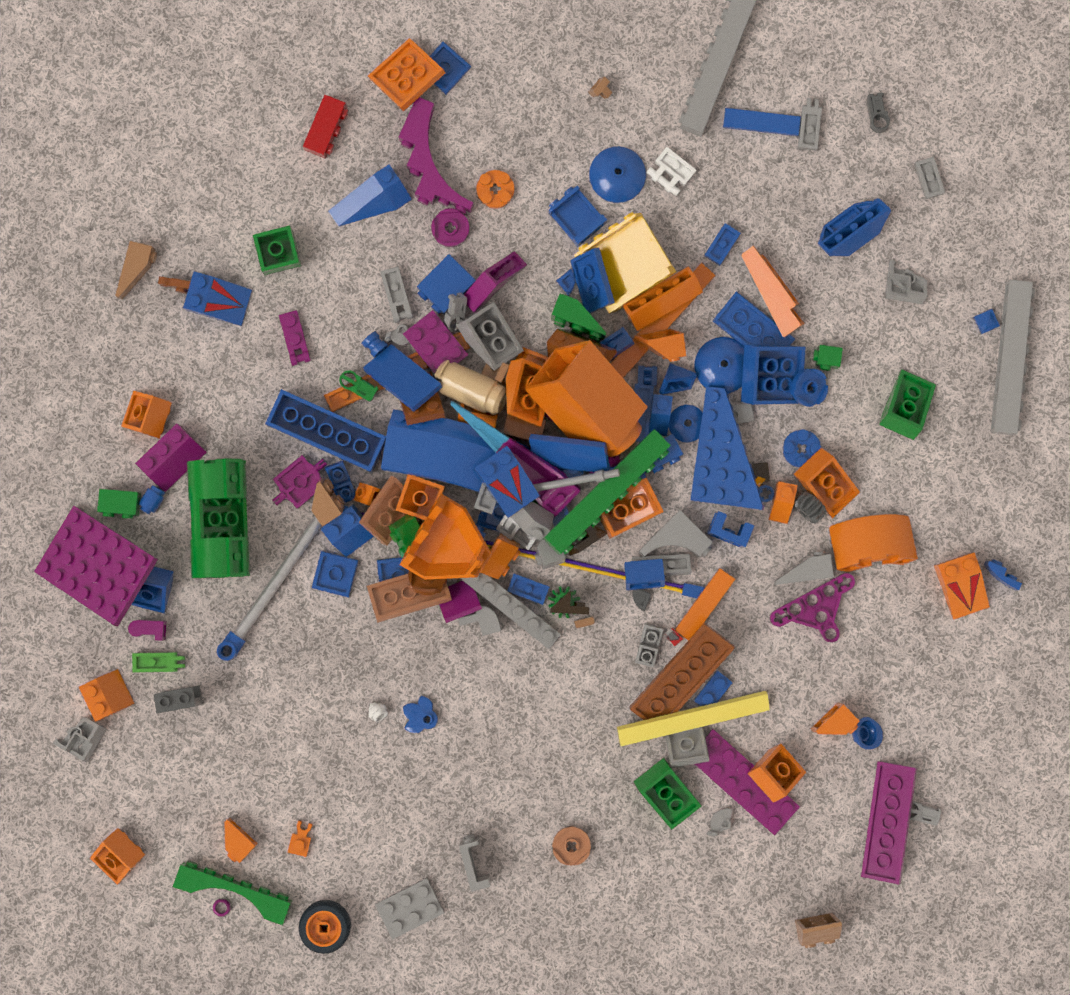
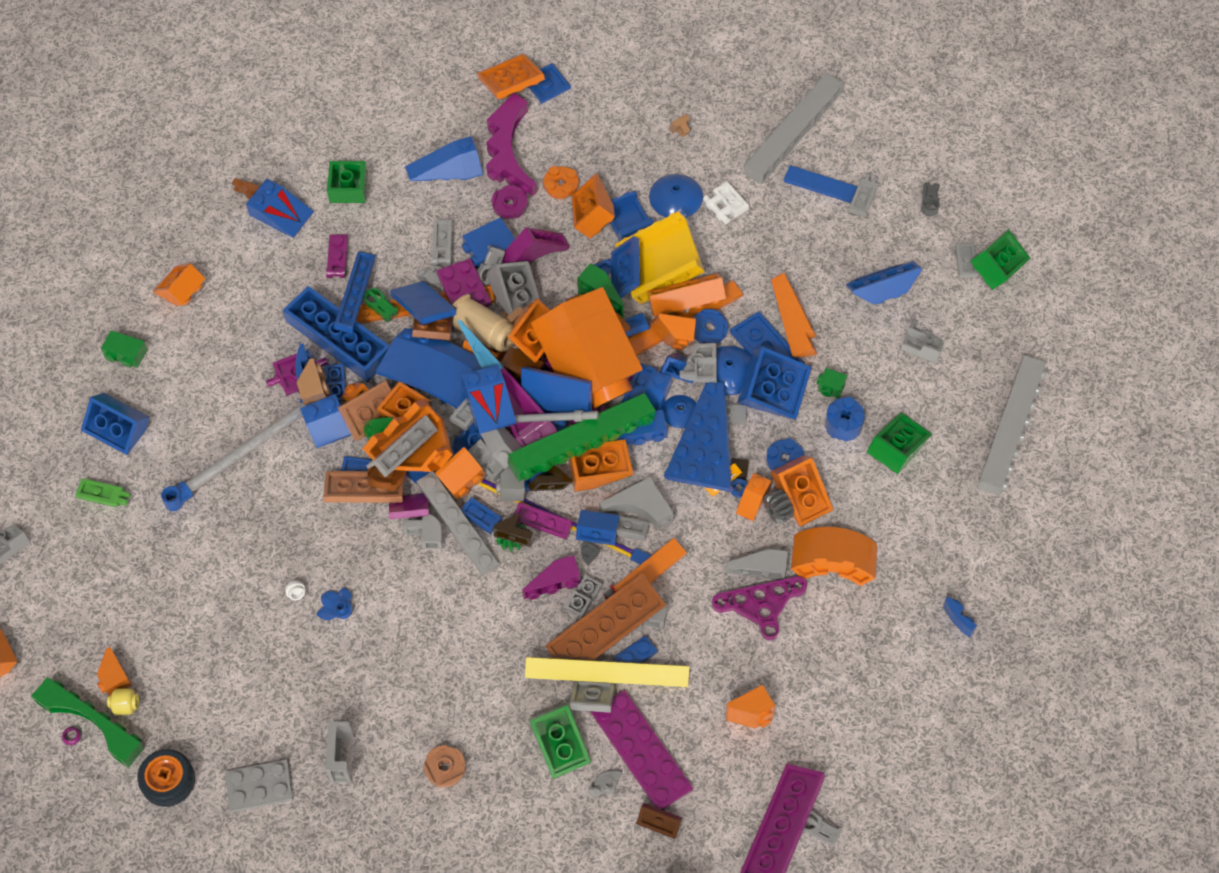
camera: 15 degrees right, 25 degrees down
(96, 566) = (80, 389): magenta plate -> none
(106, 695) = (41, 509): orange slope -> none
(136, 264) = (218, 167): medium nougat slope -> none
(149, 627) = (106, 460): magenta leg -> none
(152, 499) = (155, 354): blue brick -> none
(169, 457) = (186, 323): magenta slope -> none
(178, 699) = (106, 523): dark grey panel -> none
(218, 518) = (208, 377): green cylinder -> none
(258, 866) = (123, 701): none -> light yellow head
(300, 842) = (174, 693): orange plate -> none
(303, 473) = (301, 359): none -> blue slope
(325, 126) = (425, 101): red brick -> none
(329, 381) = (354, 292): none -> blue tile
(335, 574) = (300, 459): blue tile -> none
(374, 344) = (407, 275): blue wheel -> none
(438, 553) = (403, 446): none -> light grey panel
(538, 216) = (592, 207): none -> orange slope
(584, 622) = (525, 557): medium nougat tile -> none
(588, 578) = (544, 521): none -> magenta tile
(620, 632) = (556, 576): none -> magenta slope
(647, 375) = (654, 359): blue tile -> none
(698, 374) = (701, 364): none -> light grey slope
(703, 323) = (717, 320): none -> blue tile
(722, 244) = (756, 270): blue plate -> none
(728, 535) = (690, 511): blue panel -> none
(777, 773) = (677, 742): orange brick -> none
(778, 845) = (659, 820): none -> reddish brown plate
(800, 384) = (796, 403): blue plate -> none
(851, 384) = (844, 419): none -> blue brick
(868, 734) = (782, 731): blue piece -> none
(962, 585) = (916, 616): orange slope -> none
(965, 172) = (1000, 260): none -> green slope
(986, 321) = (994, 391): blue tile -> none

